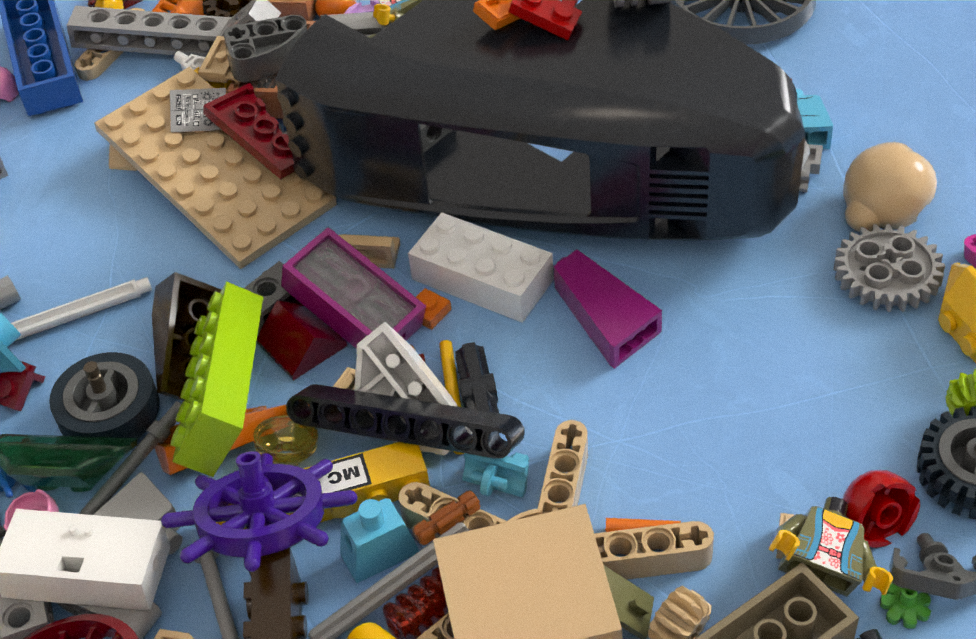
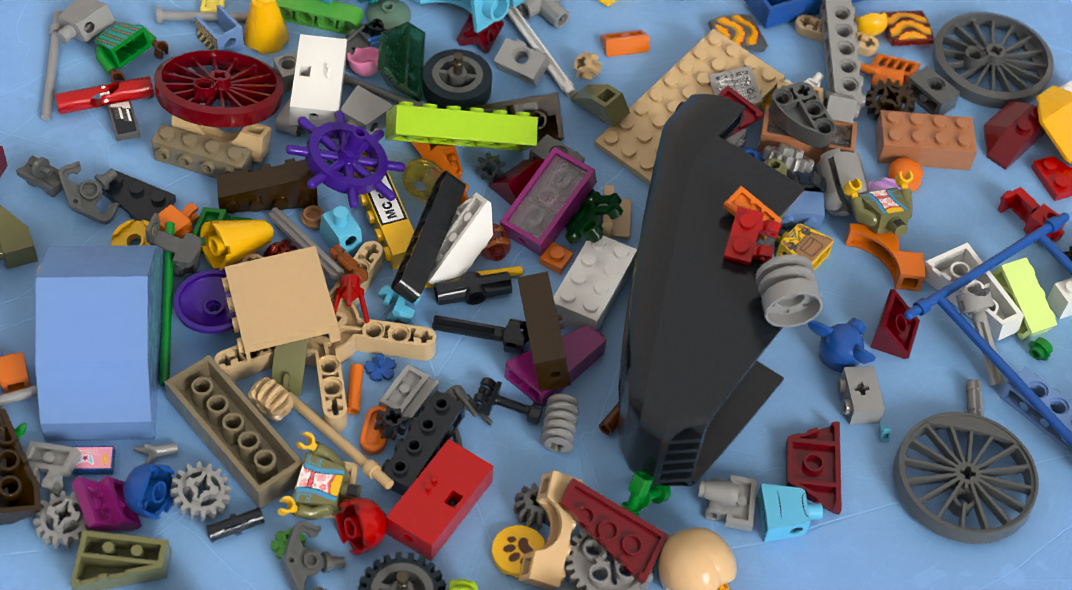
camera: 75 degrees right, 5 degrees up
(68, 229) = (625, 43): none -> orange slope
(77, 122) = (741, 30): none -> slope
(79, 343) = (531, 70): none -> light grey brick
(100, 258) = (587, 65): none -> tan gear
(183, 241) = (603, 102): none -> olive slope
(271, 366) = (494, 160): none -> black gear
(329, 586) = (312, 216): none -> medium nougat plate
(378, 253) = (592, 230): none -> dark green plant
(498, 509) = (350, 291): none -> red plant
(562, 347) = (511, 336): none -> black piece
(589, 284) = (544, 331): none -> dark brown brick
(604, 502) = (379, 368): none -> blue plant
(652, 462) = (409, 392): none -> light grey plate
(661, 407) = (458, 393): none -> dark grey plant
(664, 369) = (532, 411): none -> black bar
(678, 258) = (610, 422): none -> reddish brown axle
(698, 303) = (560, 423): none -> light grey piece
(709, 504) = (370, 439): none -> orange tile
(714, 472) = (390, 423): none -> black gear
(741, 441) = (425, 438): none -> black brick
(793, 491) = (369, 467): none -> tan bar
(811, 224) = (644, 492): none -> green bar
(818, 330) = (529, 509): none -> dark grey gear
(822, 423) = (439, 499): none -> red brick
(866, 237) = (617, 530): none -> dark red wing
(879, 354) = (511, 546): none -> yellow tile
(899, 312) = (546, 566): none -> tan arch

